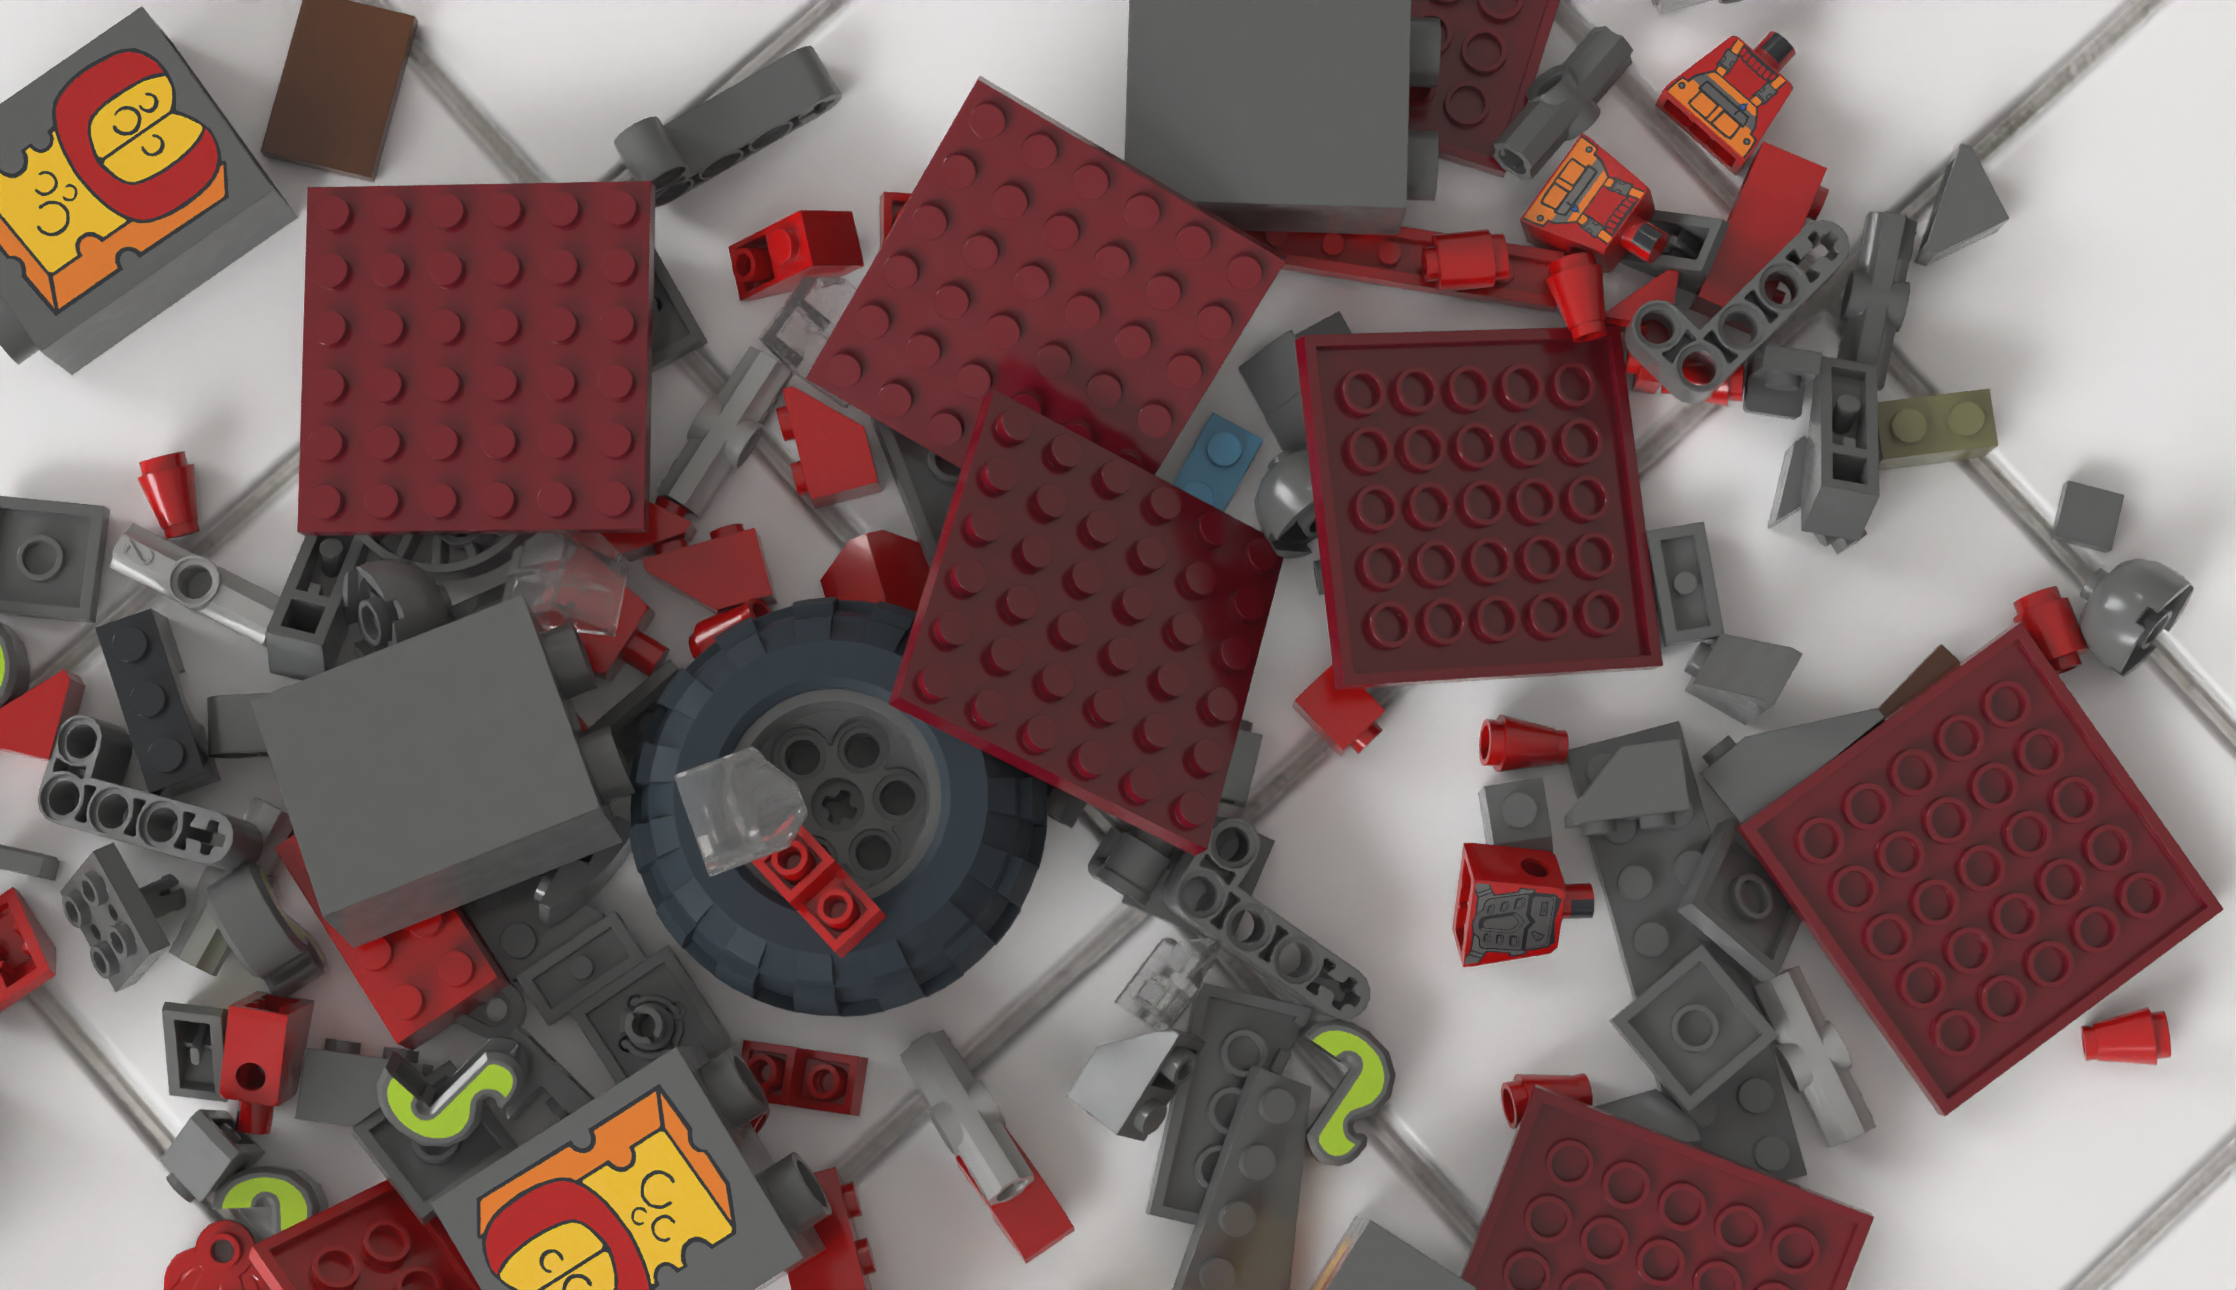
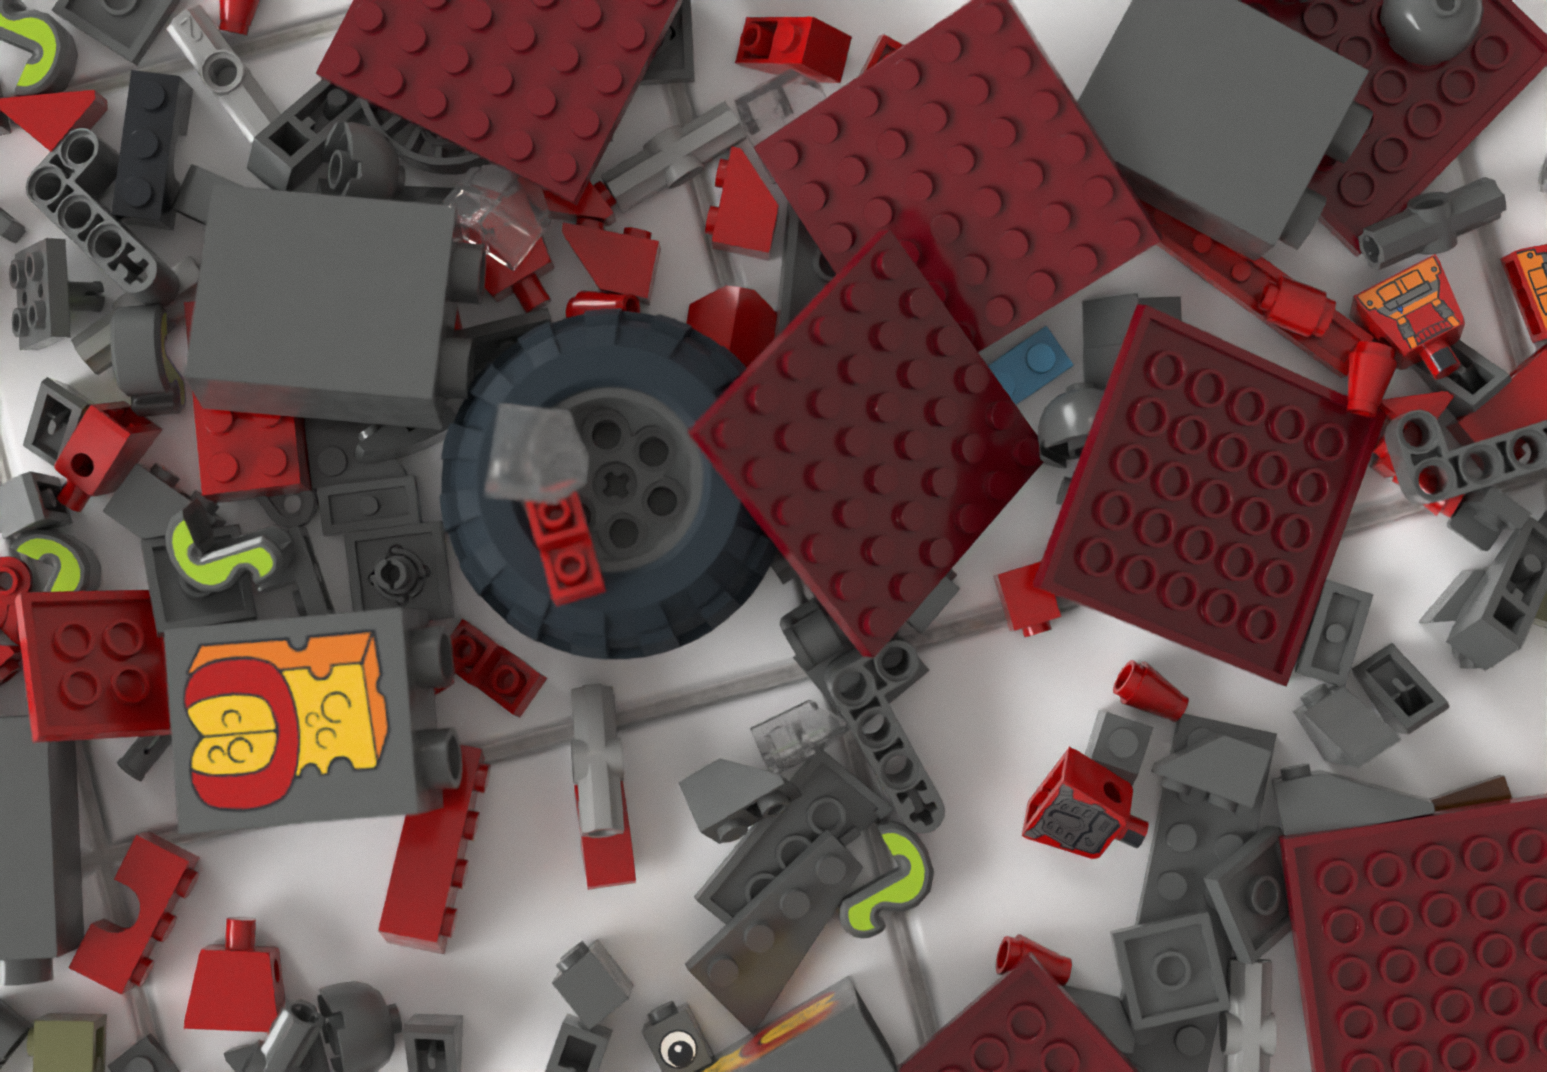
camera: 25 degrees right, 5 degrees up
(1782, 608) = (1399, 690): none -> dark grey slope

